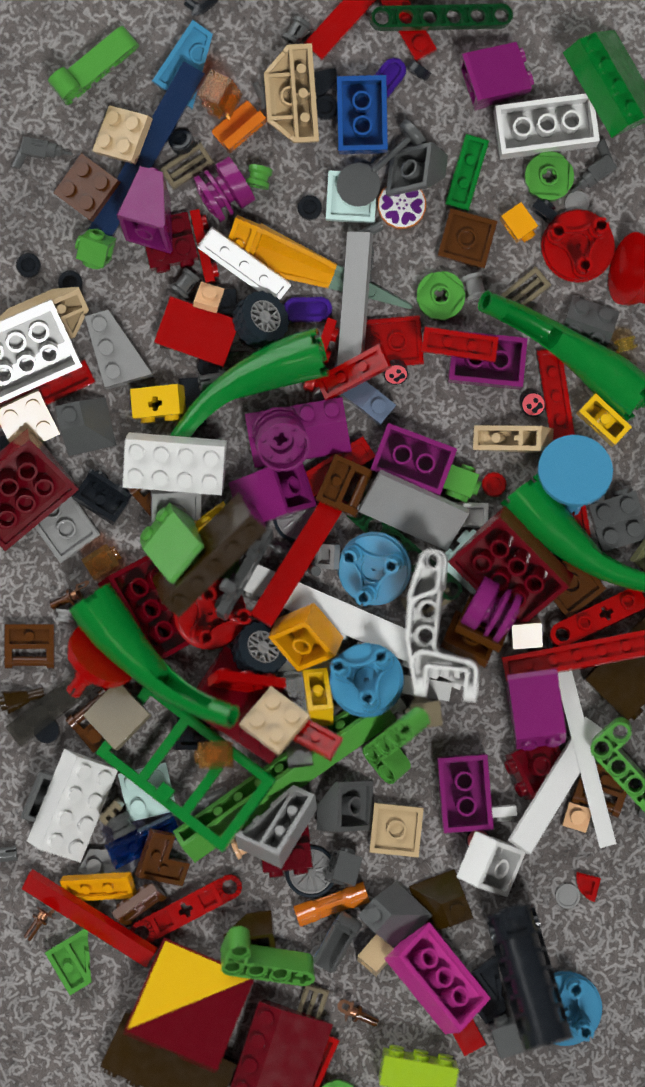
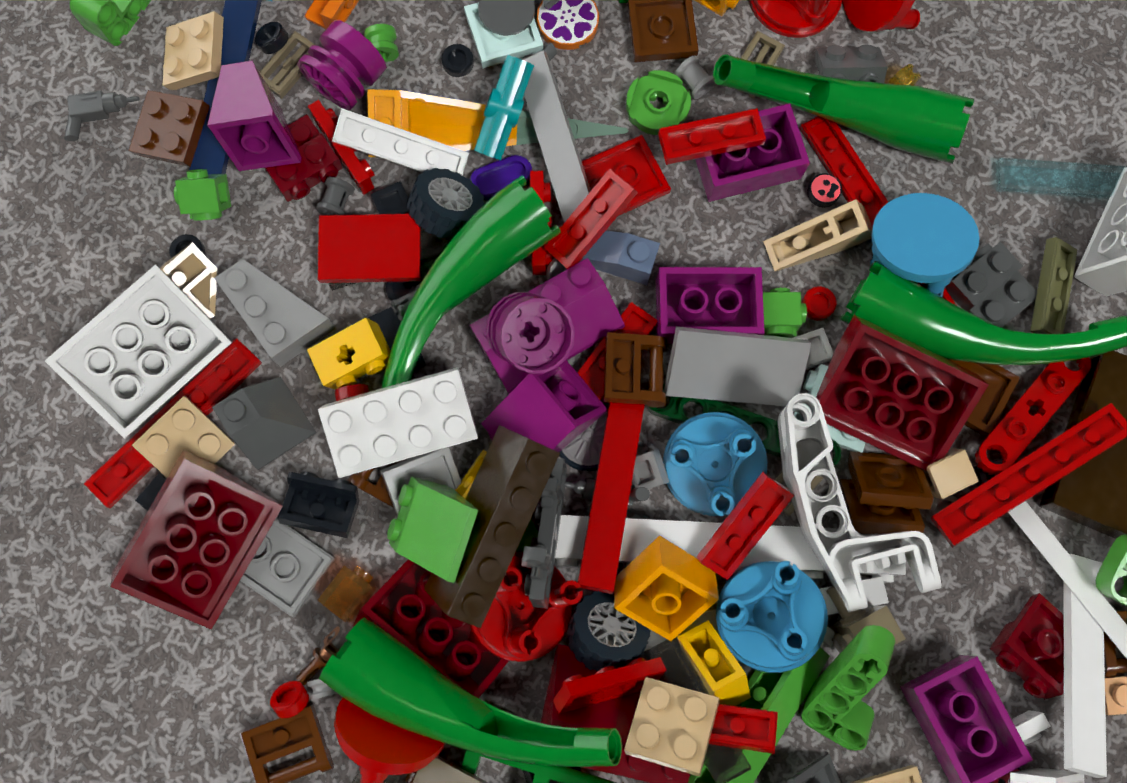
camera: 25 degrees left, 10 degrees down
(28, 265) = (125, 249): black tile -> none
(41, 615) = (289, 699): none -> red tile
(149, 429) = (350, 391): none -> red tile
(208, 297) = (369, 199): light nougat plate -> none
(326, 264) = (504, 107): none -> teal piece
(371, 617) = (745, 526): none -> red plate
(397, 373) = (641, 211): tile -> none
(492, 609) = (901, 453): magenta wheel -> none
(536, 709) = (1012, 568): magenta slope -> none
(604, 420) = (922, 170): yellow brick -> none

